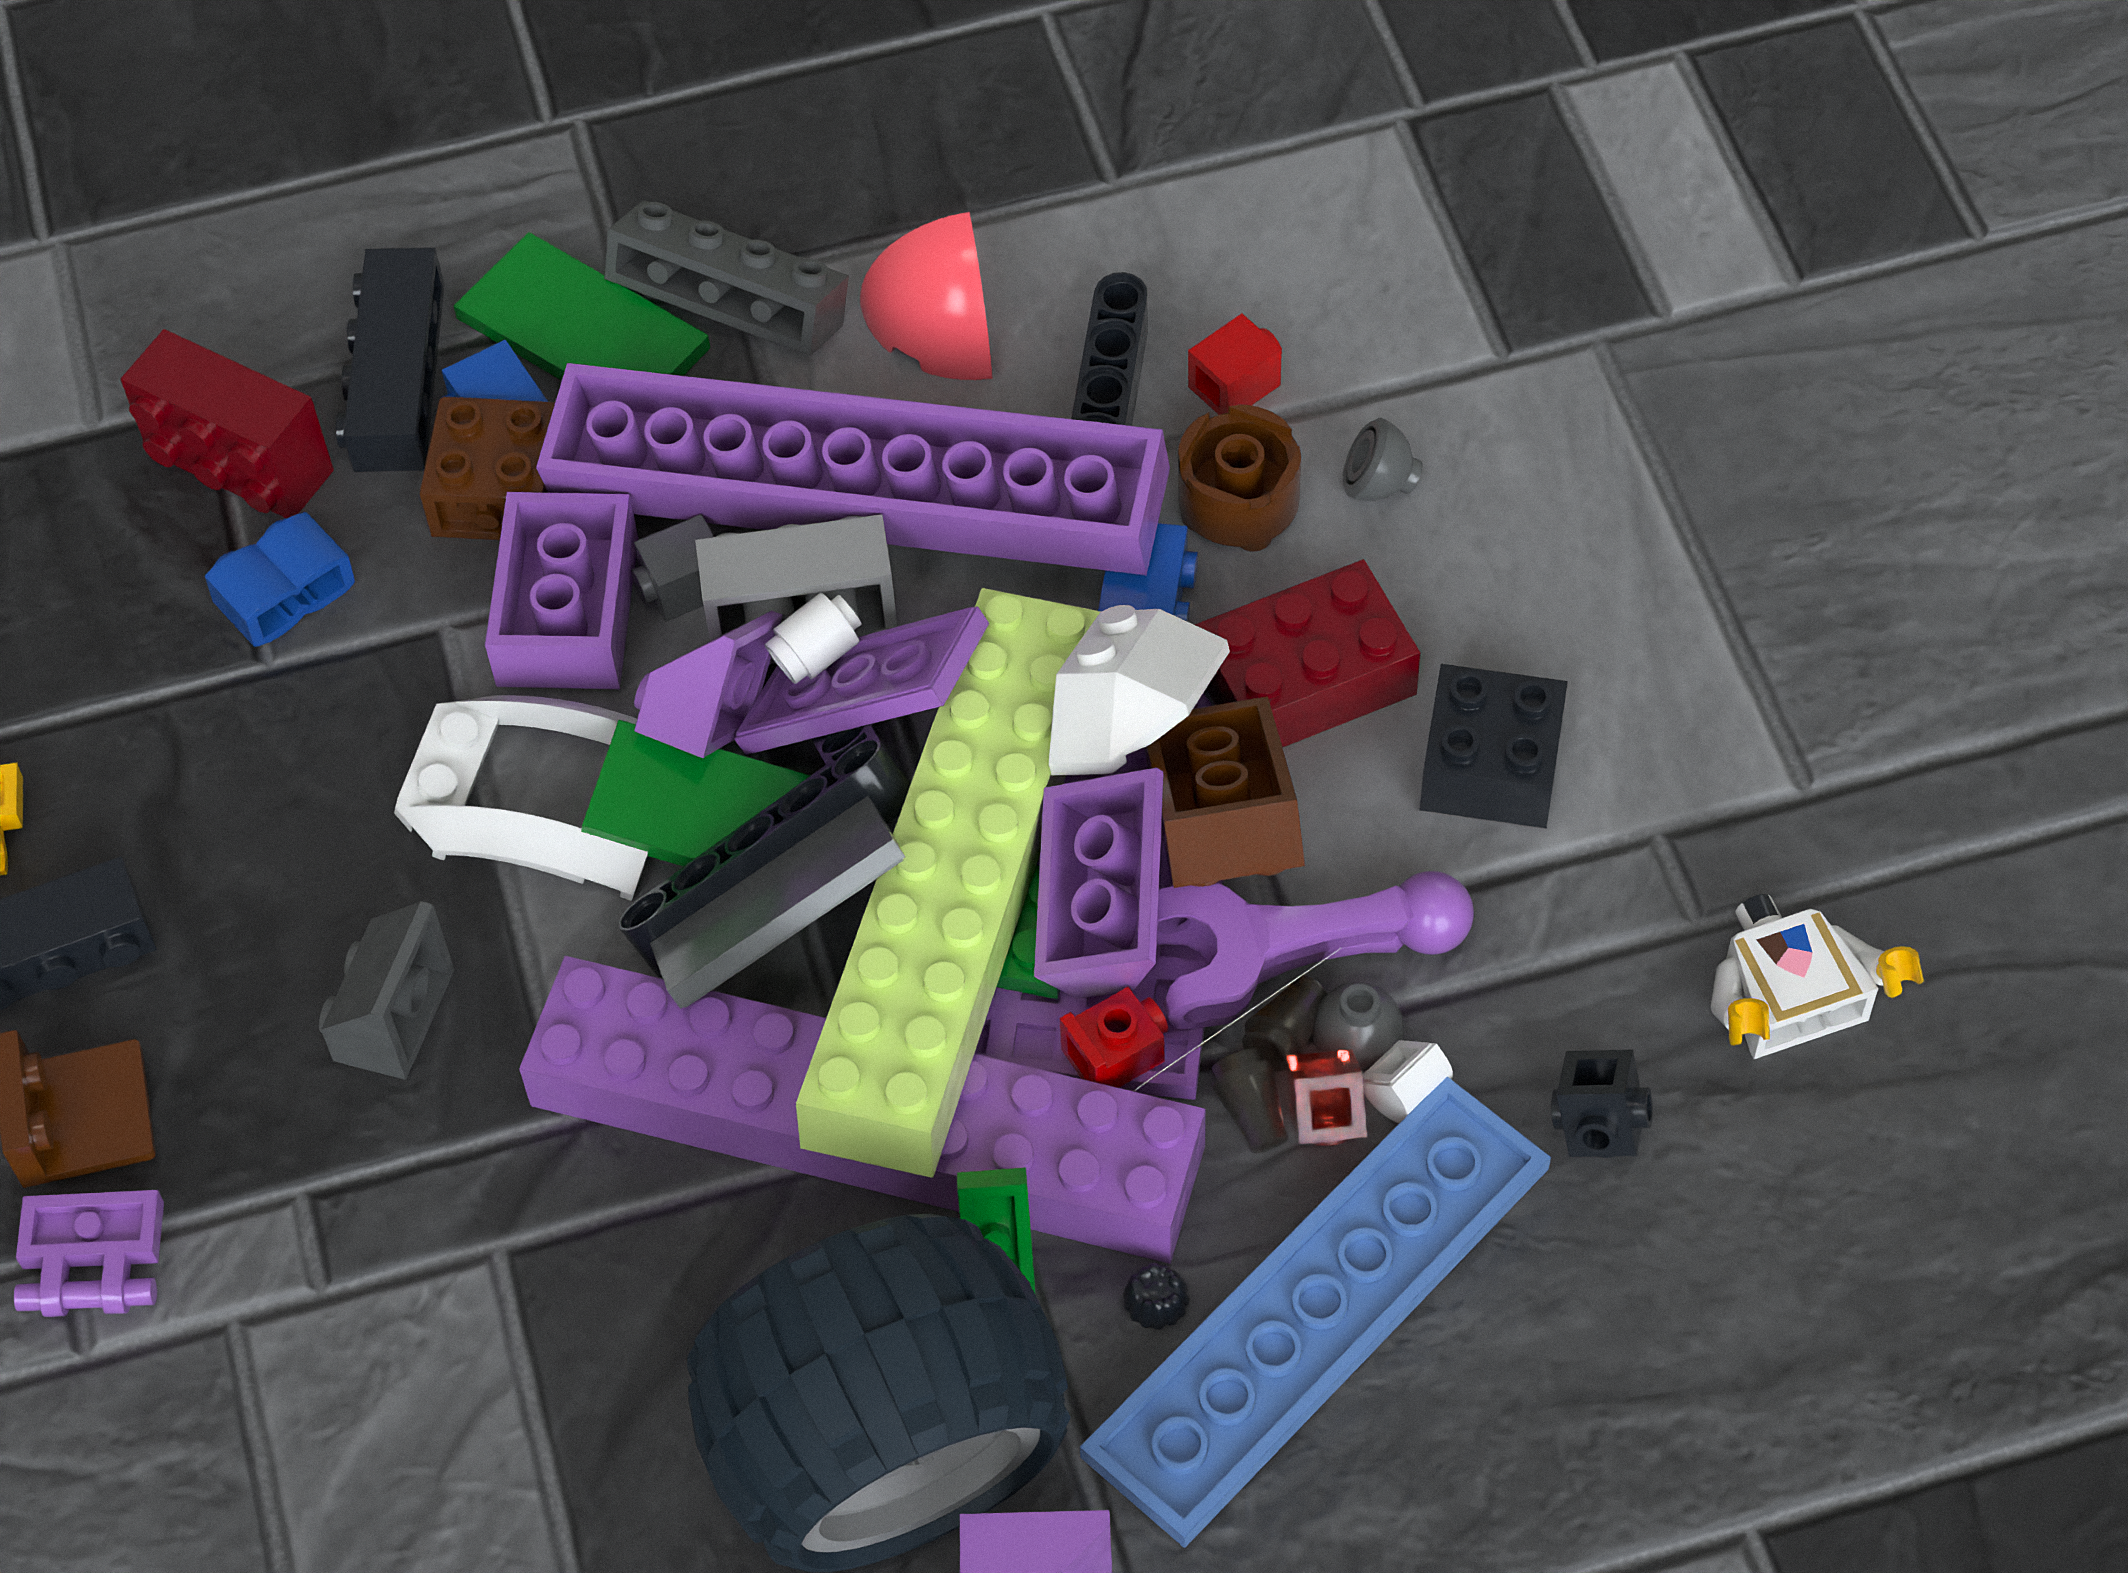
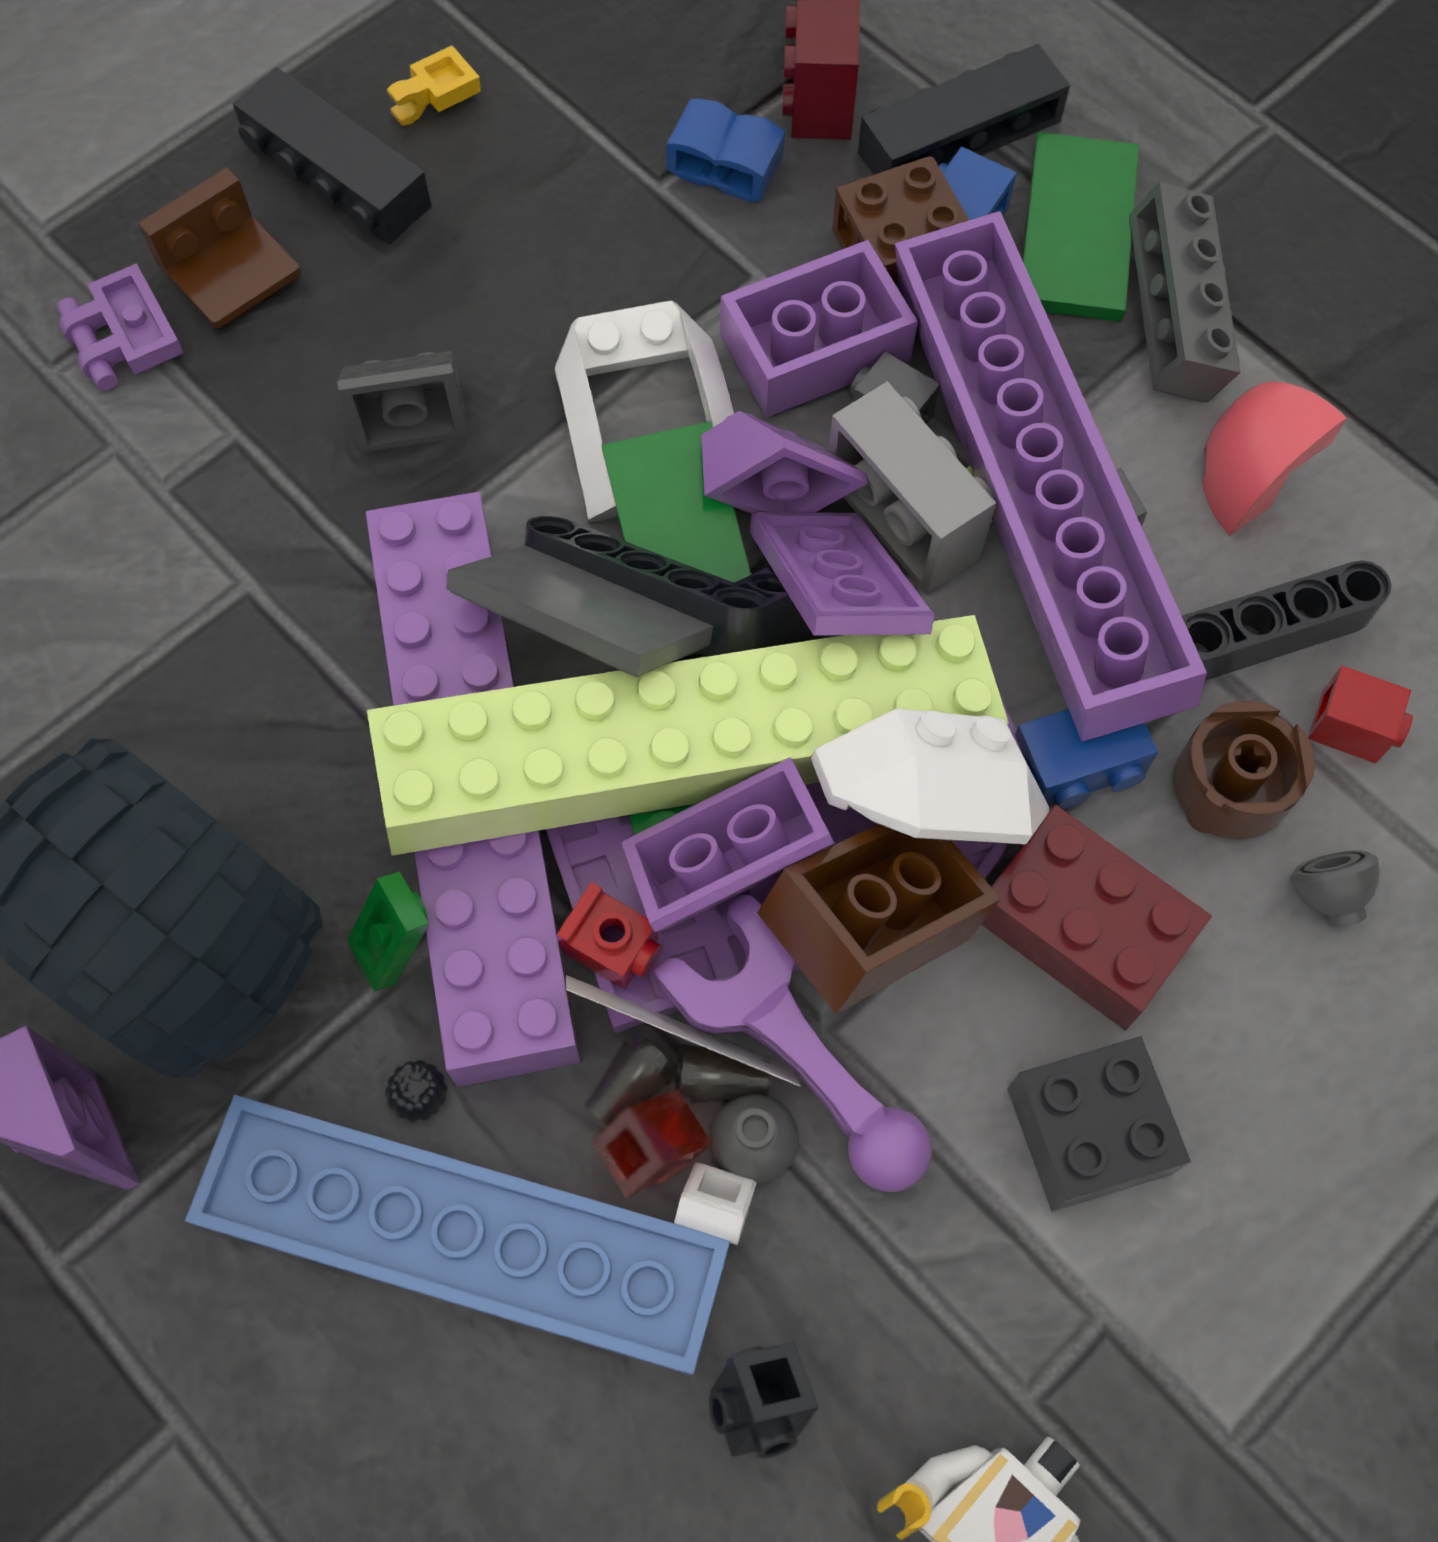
camera: 60 degrees right, 10 degrees up
(814, 637) = (857, 515): white brick -> none

